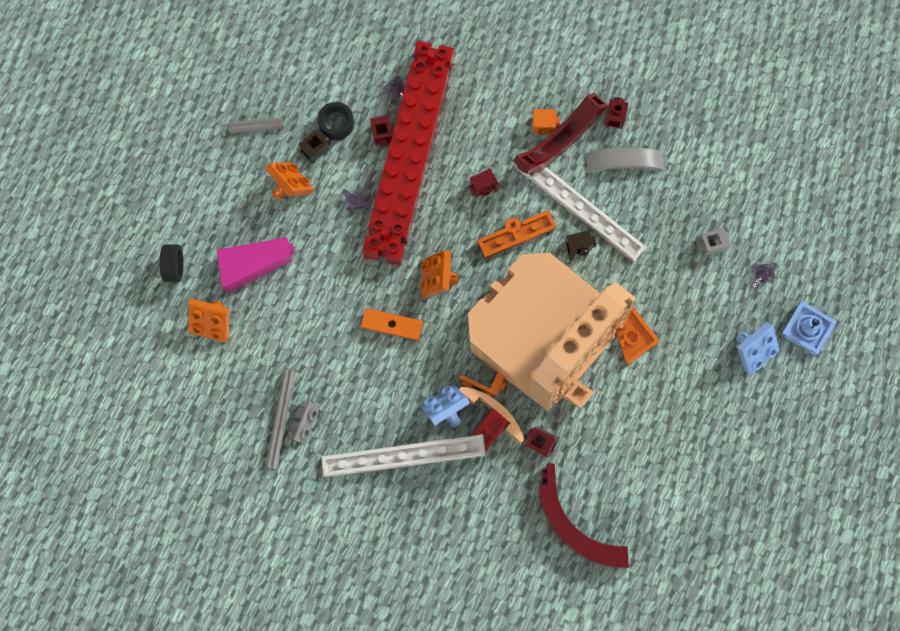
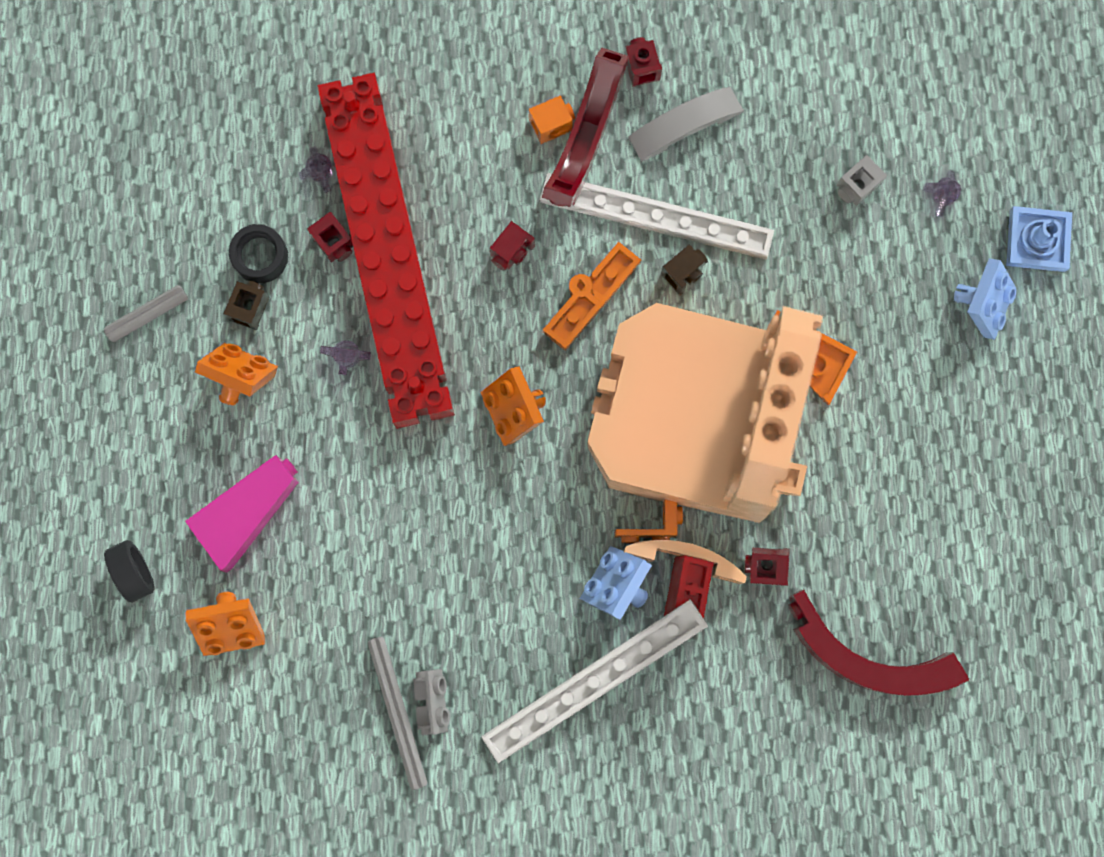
camera: 30 degrees left, 5 degrees up
(379, 322) = (465, 508): orange tile -> none

